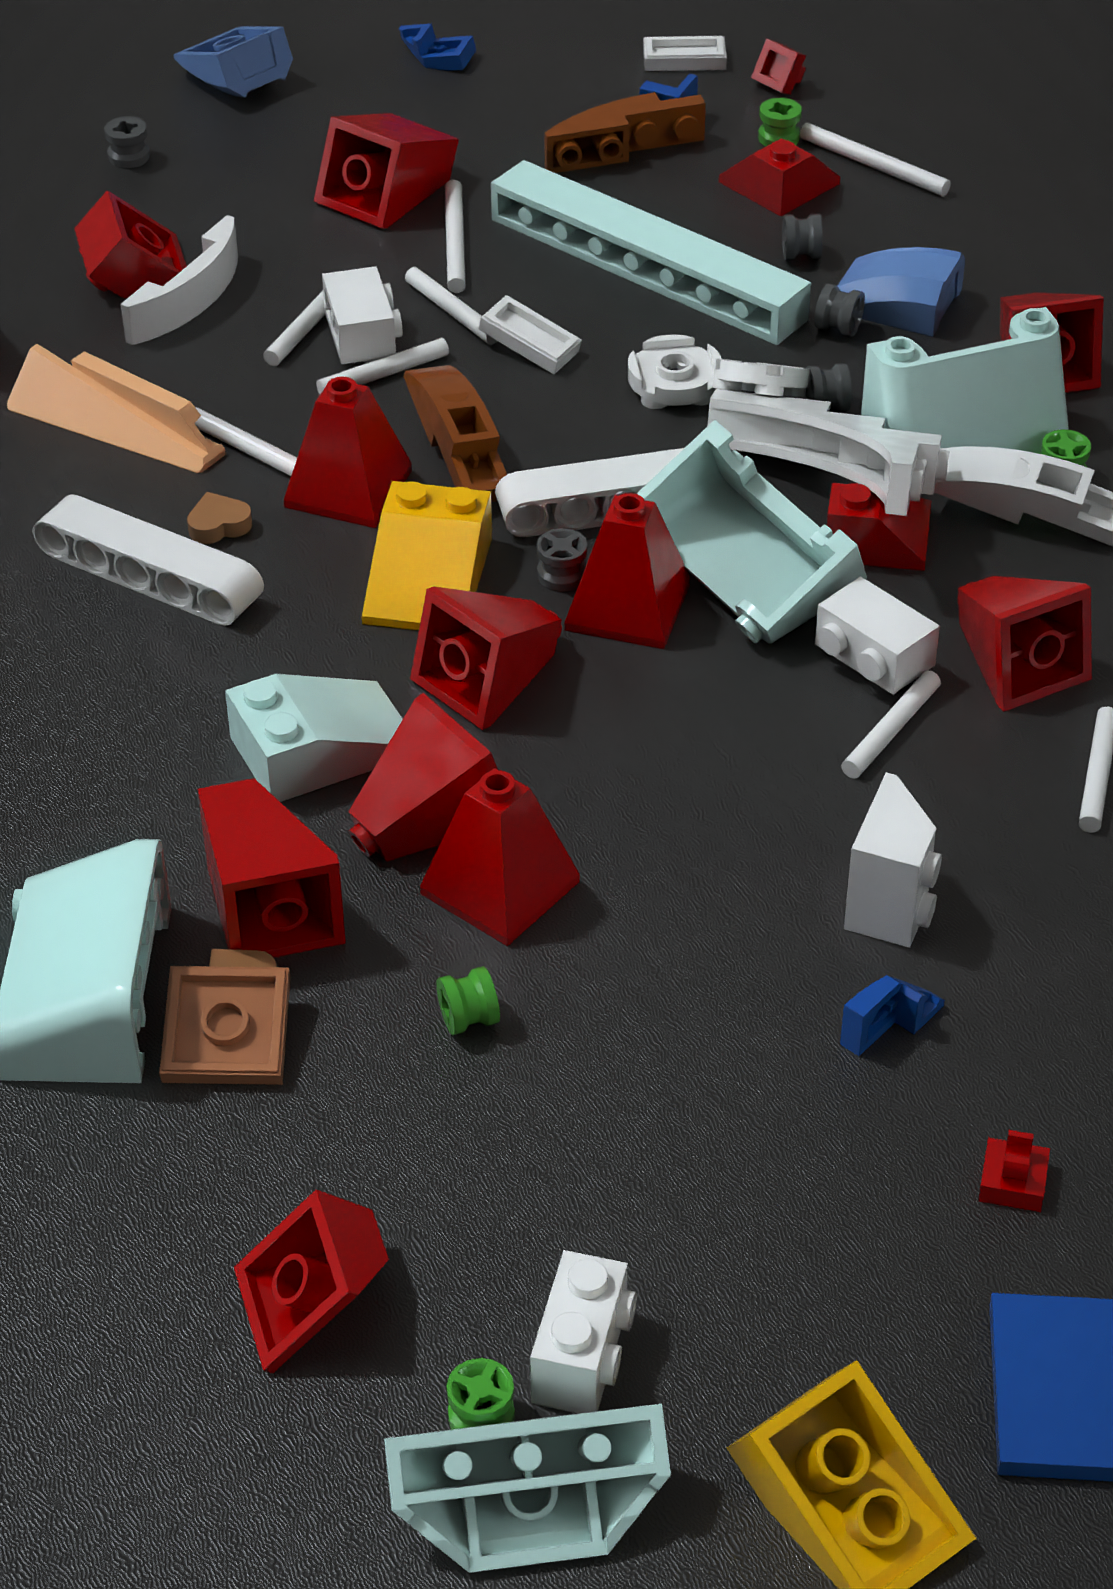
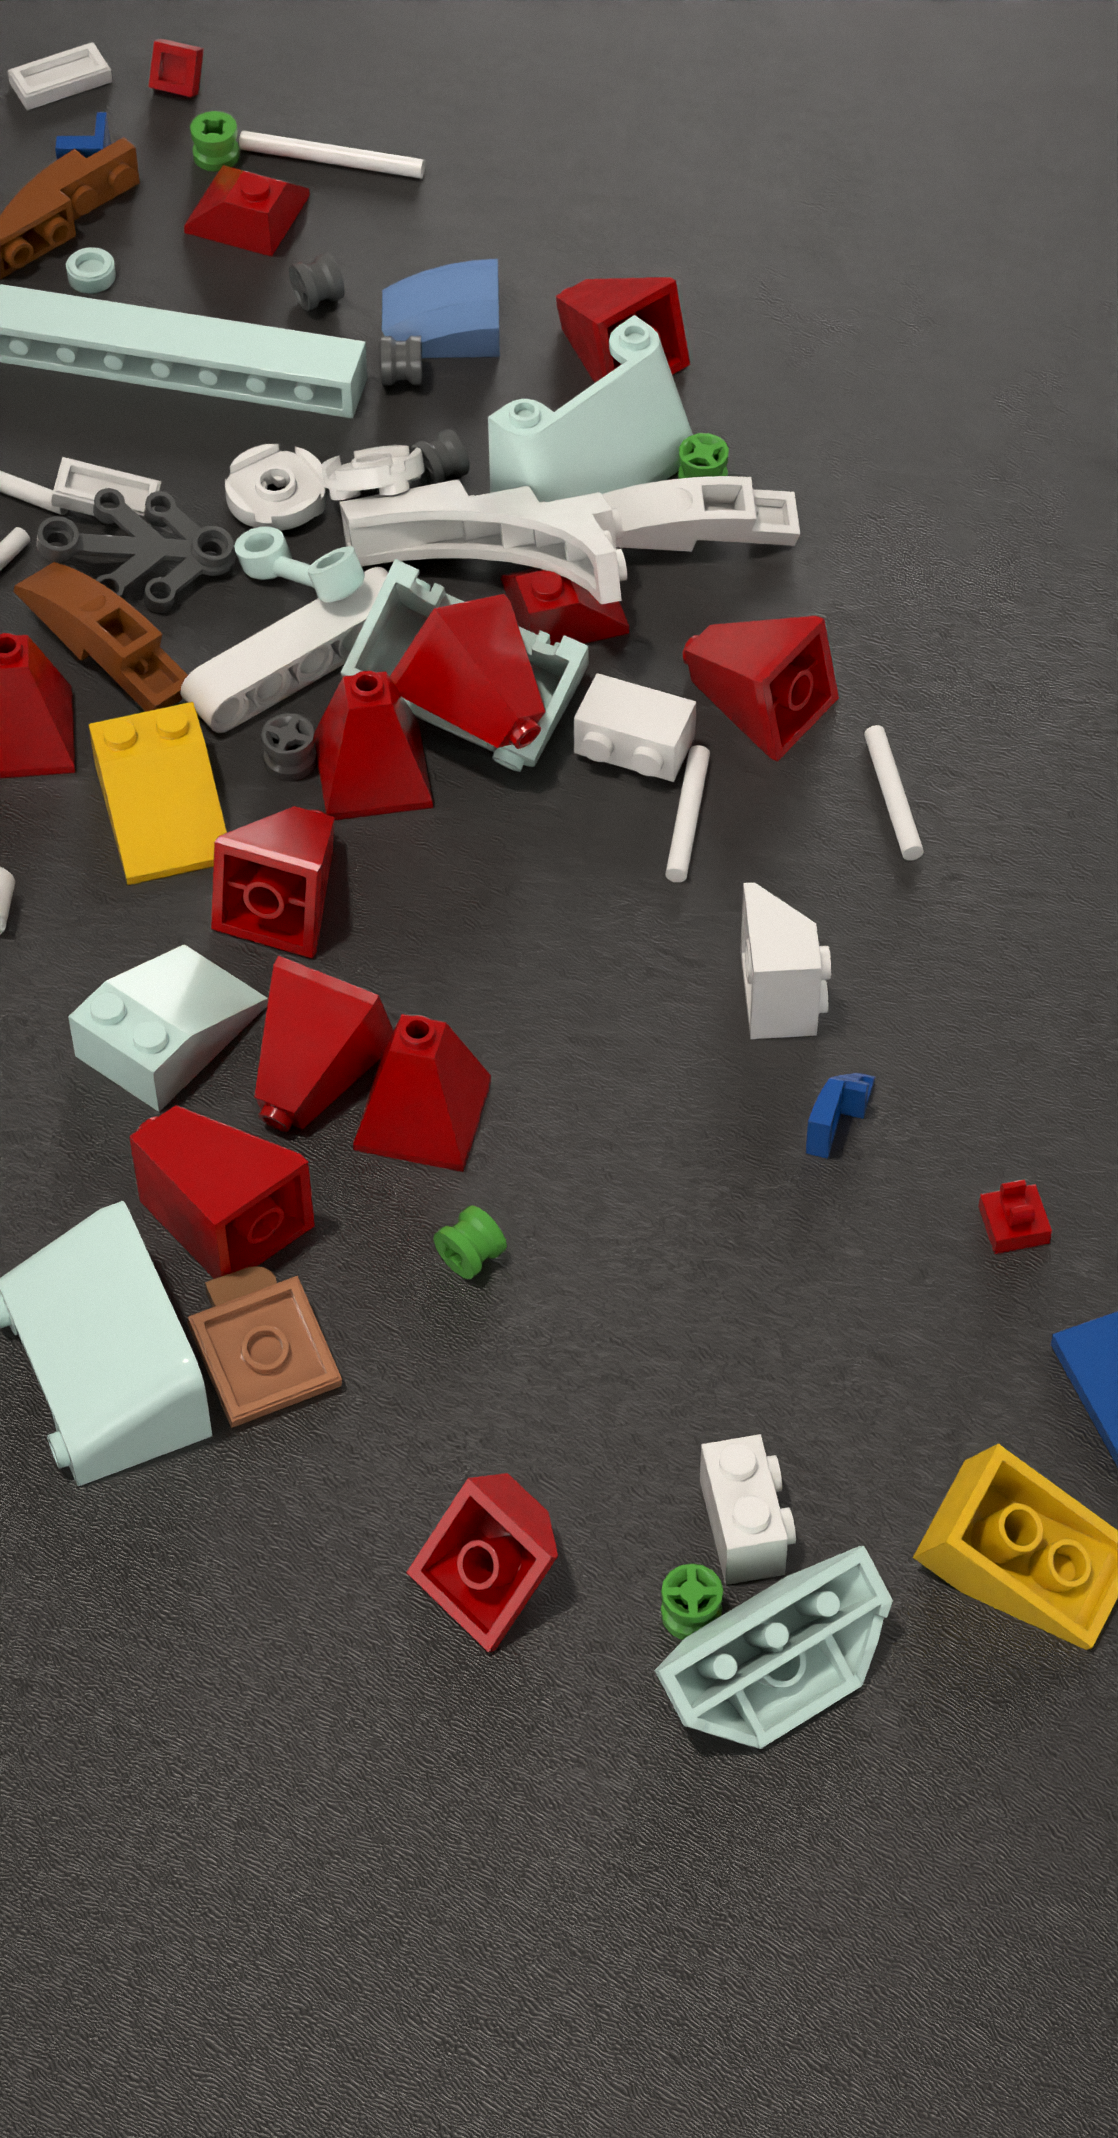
camera: 25 degrees left, 10 degrees up
(583, 397) = (143, 546): none -> dark grey plant
(623, 183) = (90, 270): none -> light aqua tile
(638, 416) = (267, 555): none -> light aqua piece
(741, 531) = (474, 672): none -> red slope

